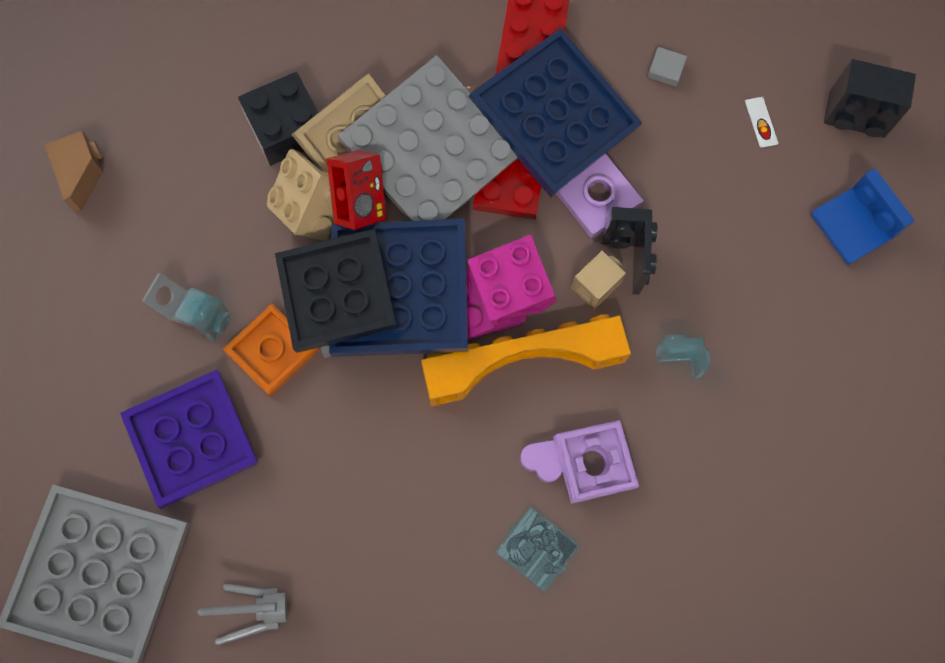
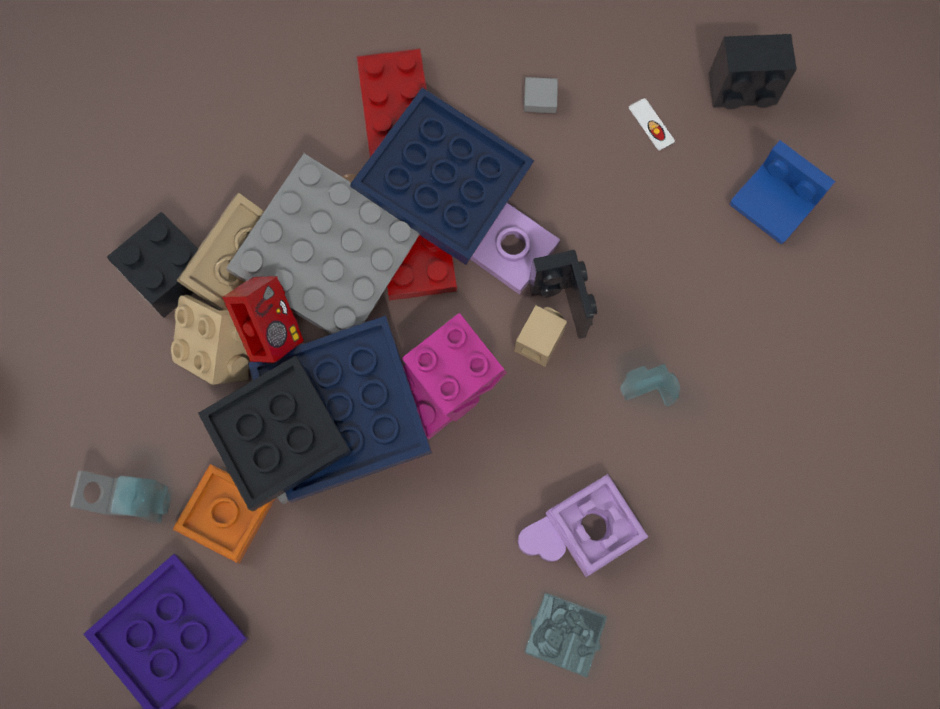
camera: 15 degrees left, 0 degrees up
(592, 344) = (554, 405): light orange arch -> none

